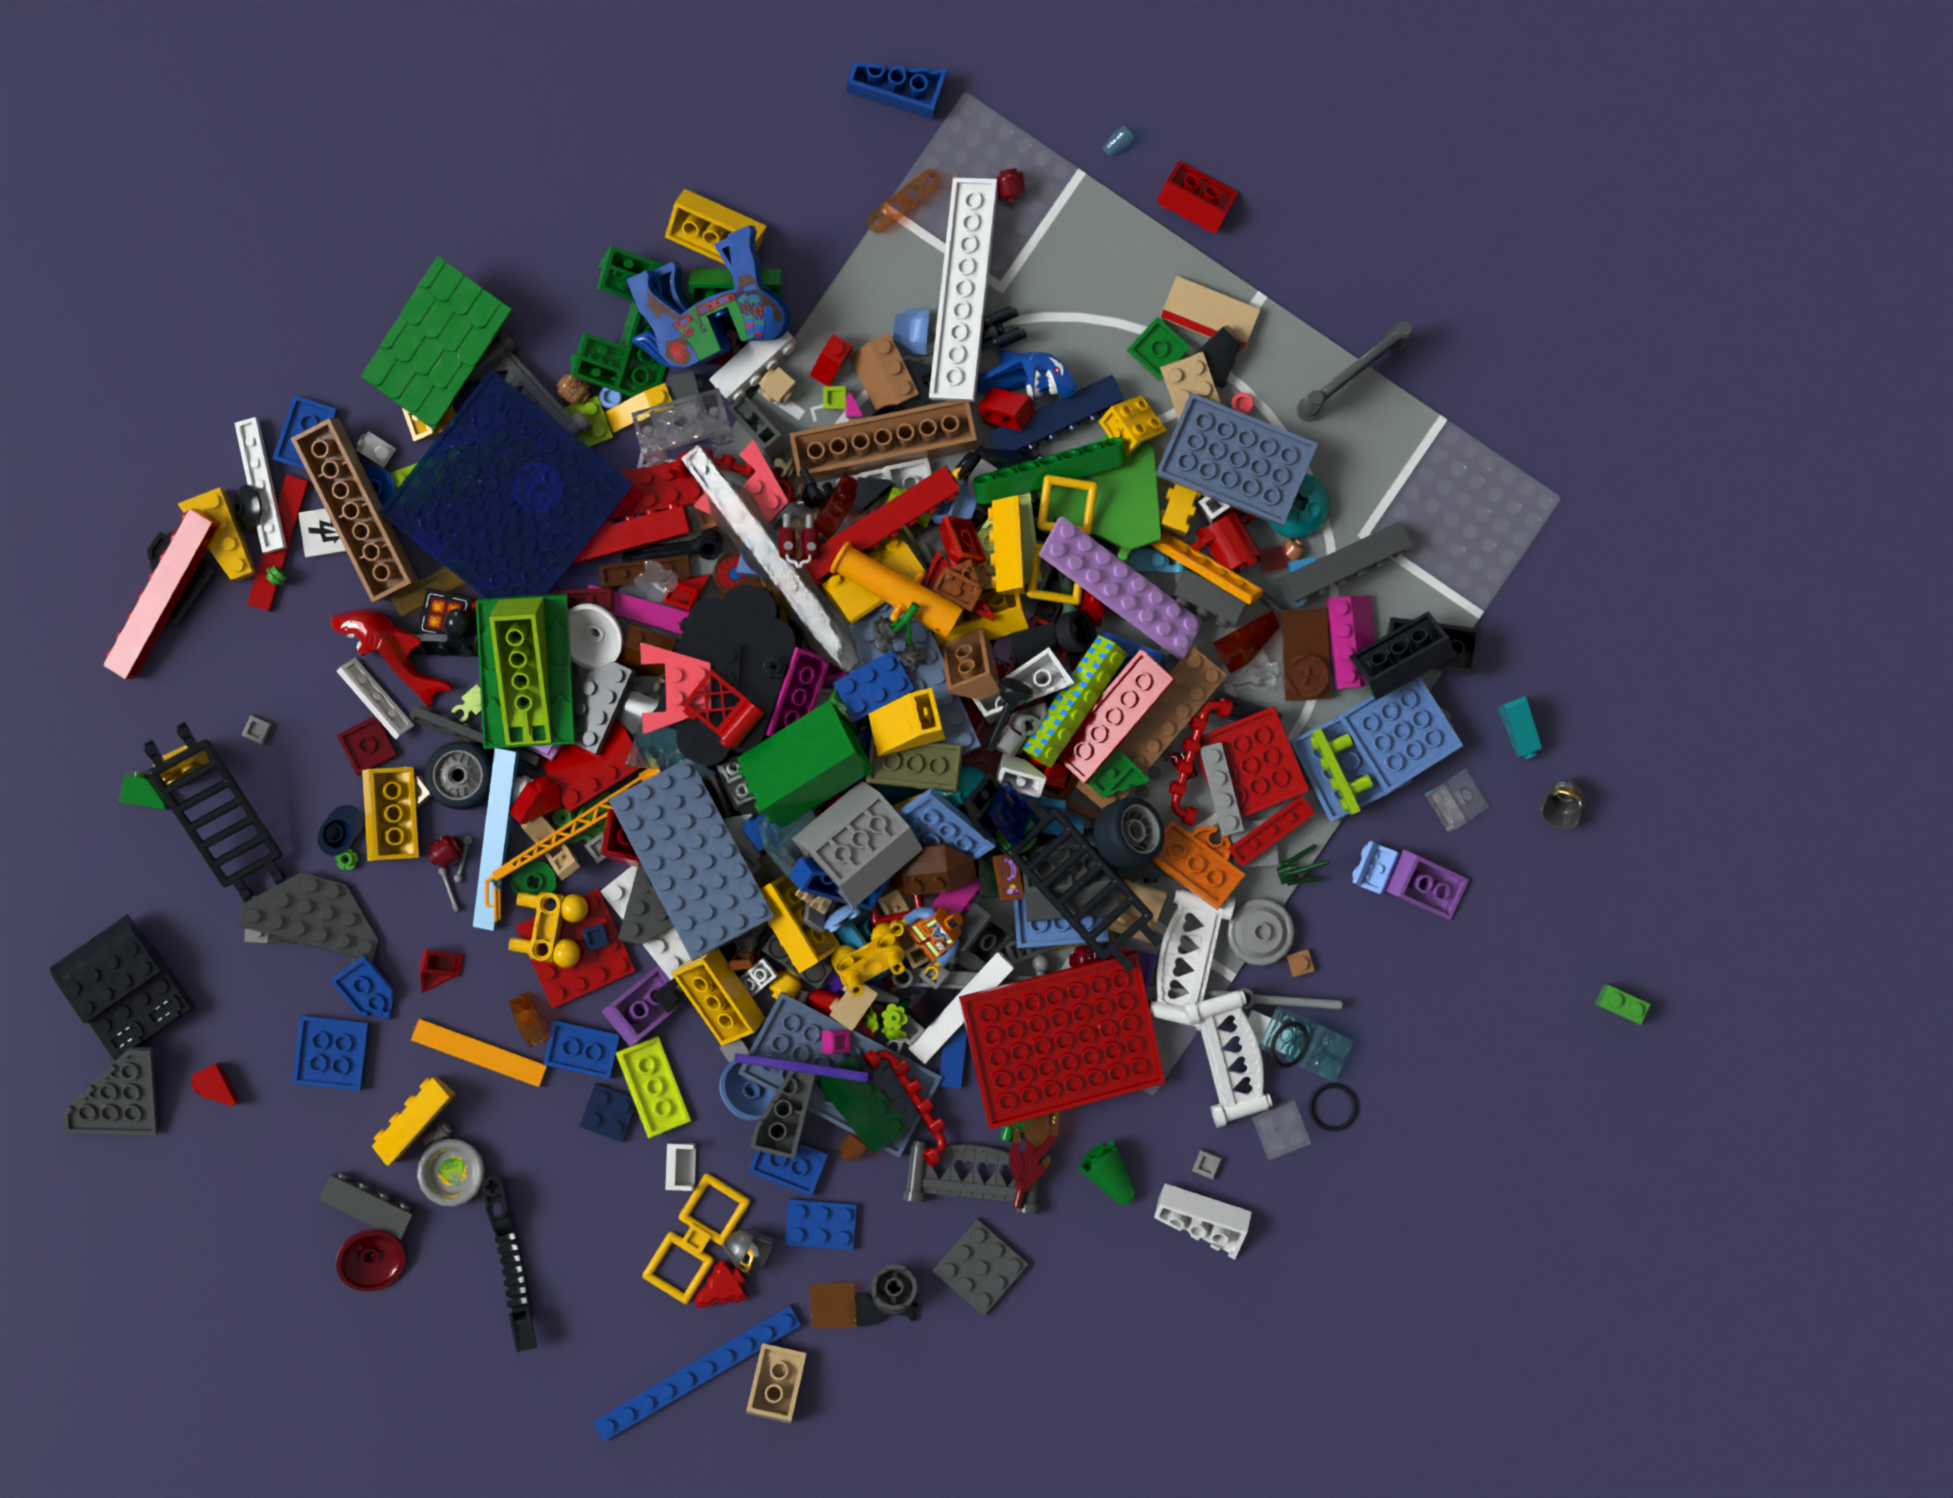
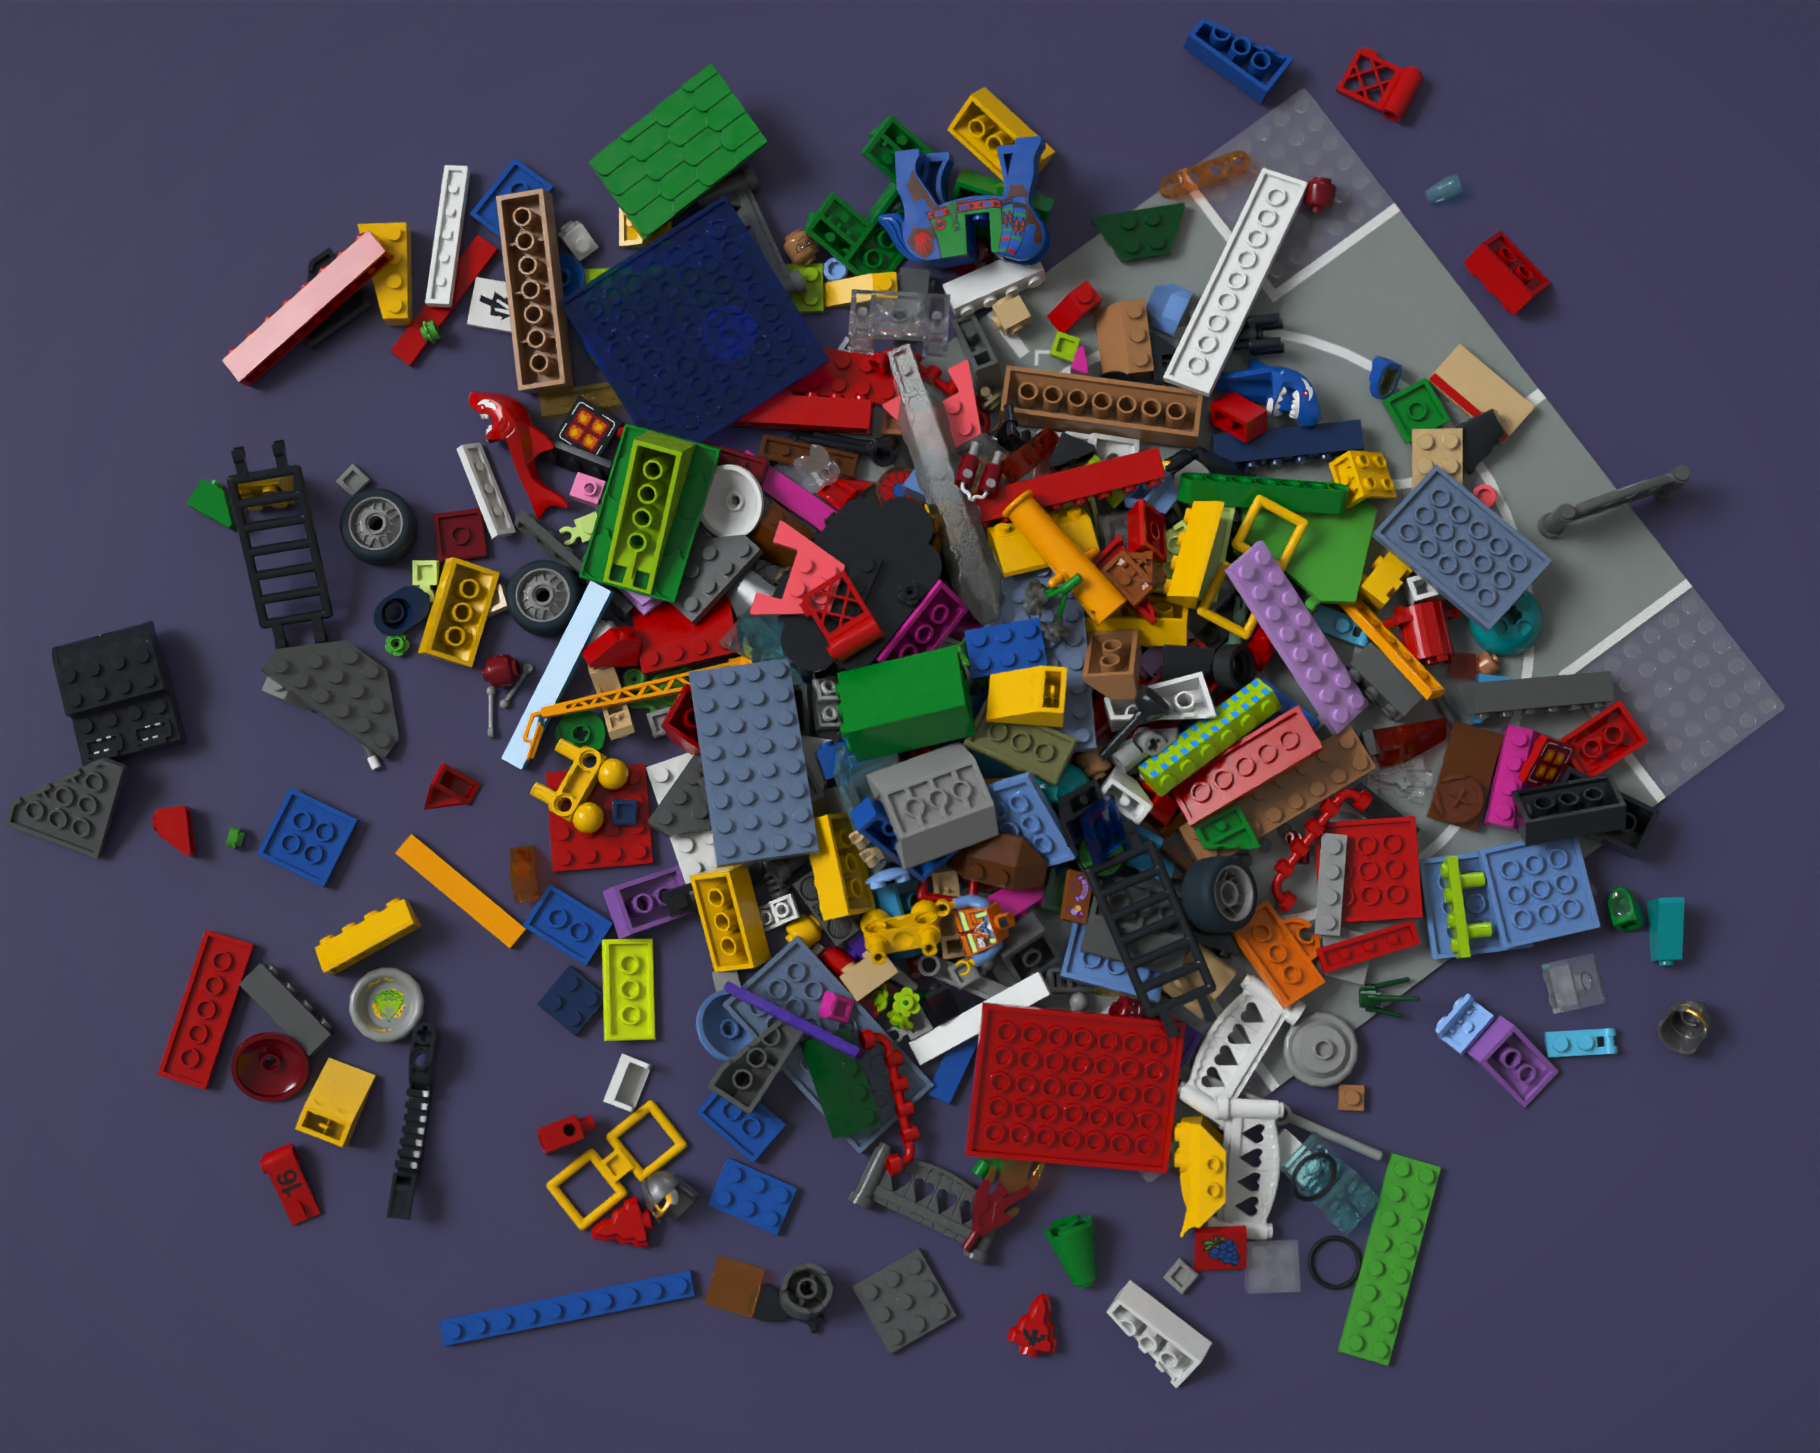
camera: 20 degrees right, 5 degrees down
(247, 507) = (427, 253): black dish -> none
(268, 1075) = (234, 837): none -> bright green plate
(297, 1230) = (206, 1009): none -> red plate
(311, 767) = (386, 544): none -> wheel
(350, 790) = (426, 574): none -> yellowish green plate
(365, 988) = (367, 783): blue tile -> none
(423, 1351) = (290, 1183): none -> red door
(438, 1270) = (336, 1103): none -> yellow slope
(439, 1133) = (388, 960): light grey pin -> none
(457, 622) = (598, 440): black piece -> none
(464, 668) = (588, 490): none -> bright pink brick
(633, 1235) = (552, 1135): none -> red torso
(743, 960) = (768, 889): dark orange tile -> none
(776, 1383) = (646, 1348): tan slope -> none
(813, 918) = (858, 869): light grey tile -> none
(851, 1147) = (813, 1126): clear orange plate -> none
(866, 271) = (1141, 232): none -> dark green wing
(983, 759) = (1092, 763): none -> medium nougat head
(1049, 65) = (1399, 90): none -> red piece
(1099, 1253) = (1034, 1330): none -> red rock
(1121, 328) = (1384, 377): none -> blue rock
(1192, 1069) = (1201, 1169): none -> yellow slope
(1213, 655) = (1368, 742): none -> dark grey tile
(1231, 1130) = (1220, 1248): none -> red tile
(1370, 619) = (1546, 761): none -> tile
(1378, 1088) = (1389, 1259): none -> bright green plate
(1411, 585) = (1604, 740): none -> red slope
(1479, 848) = (1579, 1042): none -> medium azure plate
(1480, 721) = (1624, 910): none -> green rock
(1622, 1004) = (1679, 1260): bright green brick -> none

